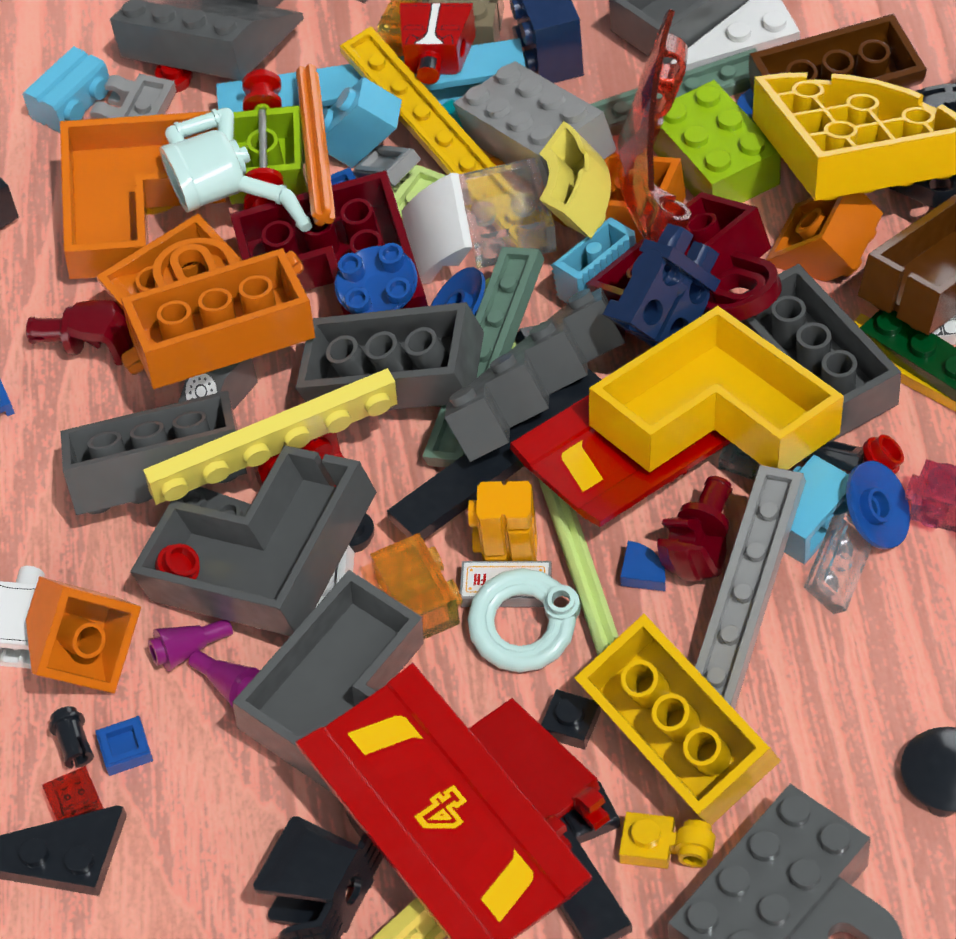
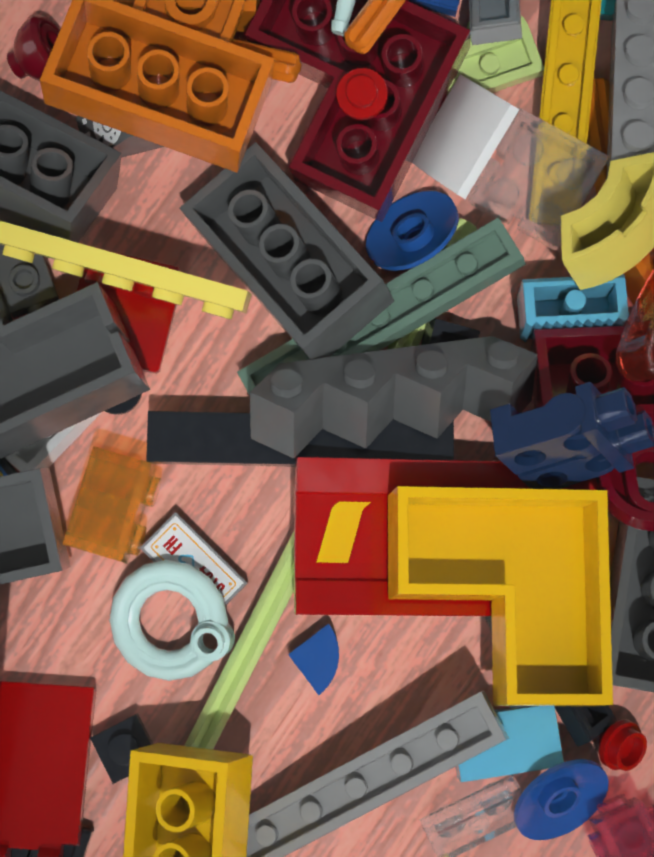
camera: 35 degrees right, 30 degrees up
(115, 396) = (32, 47): none -> dark red brick
(352, 239) = (362, 94): none -> red plate
(375, 279) = (342, 160): blue dish -> none
(504, 521) = (227, 524): light orange brick -> none
(698, 534) = (385, 680): dark red piece -> none

